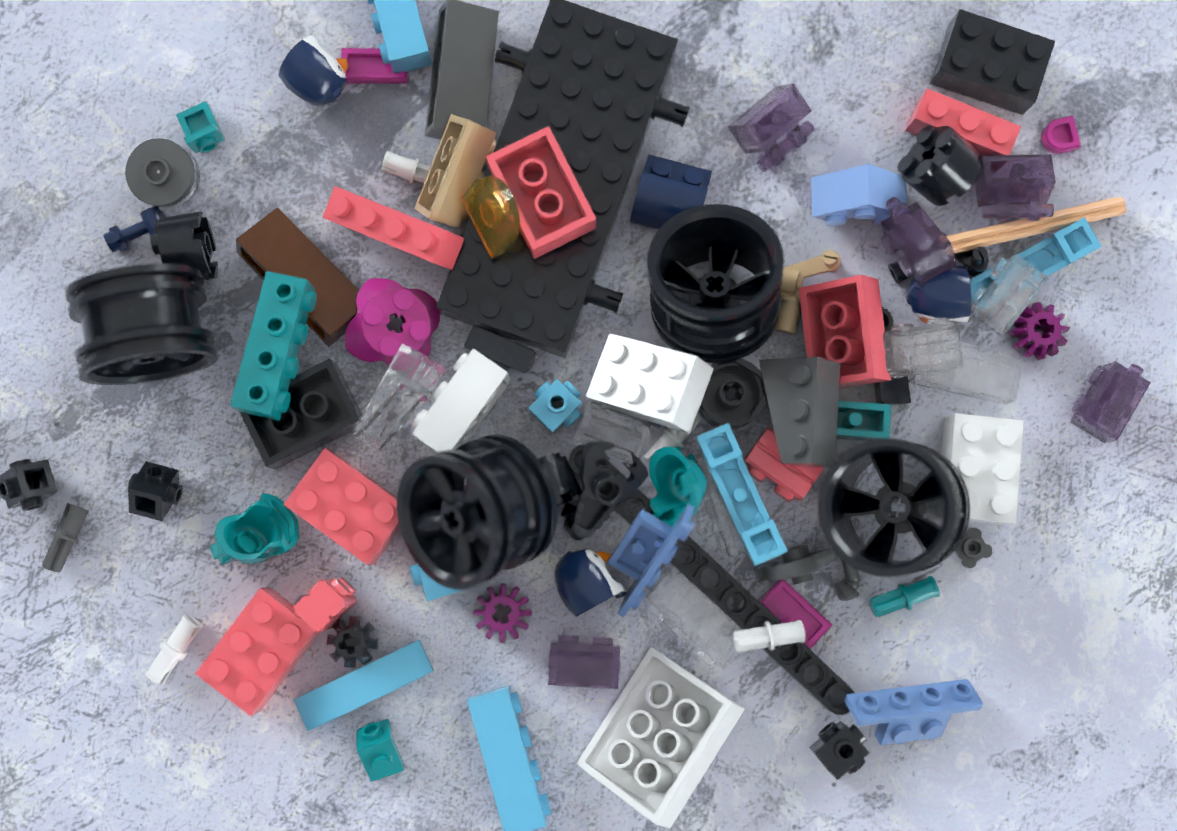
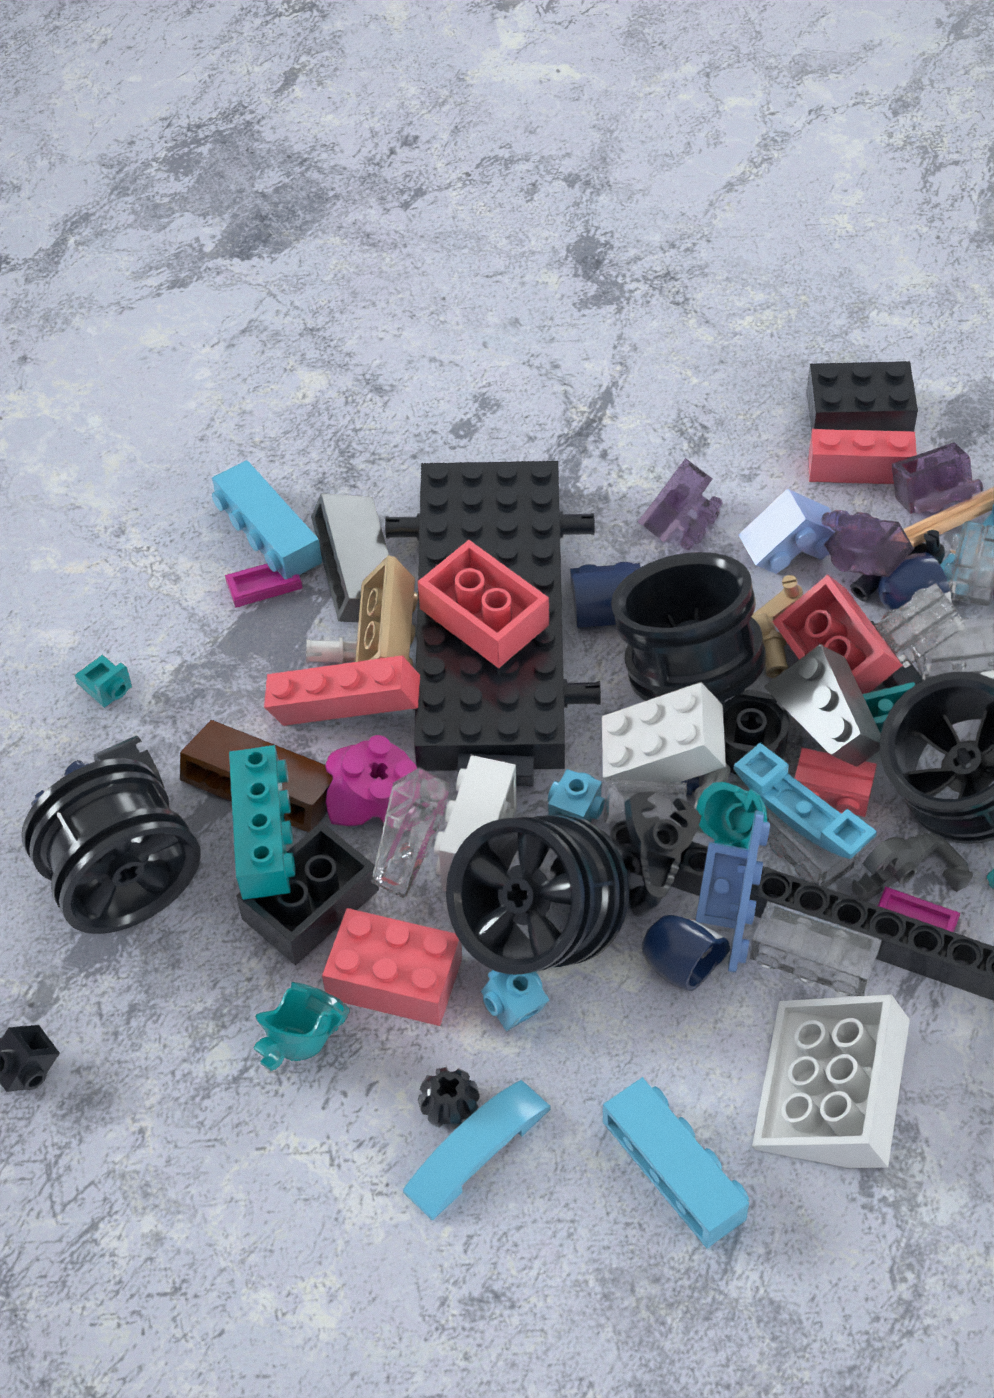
camera: 15 degrees left, 30 degrees down
(64, 537) = (79, 1105): dark grey axle -> none
(154, 491) = (168, 1030): black brick -> none
(162, 173) = (76, 728): dark grey piece -> none
(173, 649) = (245, 1180): white pin -> none
(257, 651) = (346, 1142): coral brick -> none
(313, 72) = (206, 596): dark blue piece -> none
(326, 603) = (405, 1059): coral brick -> none
(378, 750) = (524, 1205): teal bracket -> none
(493, 213) = (443, 633): clear yellow tile -> none
(513, 616) = (602, 1002): magenta gear -> none
(584, 662) = (715, 1034): clear purple brick -> none
(769, 636) = (899, 925): white axle -> none
(940, 164) = (856, 480): black brick -> none
(1061, 136) = (961, 435): dark pink tile -> none

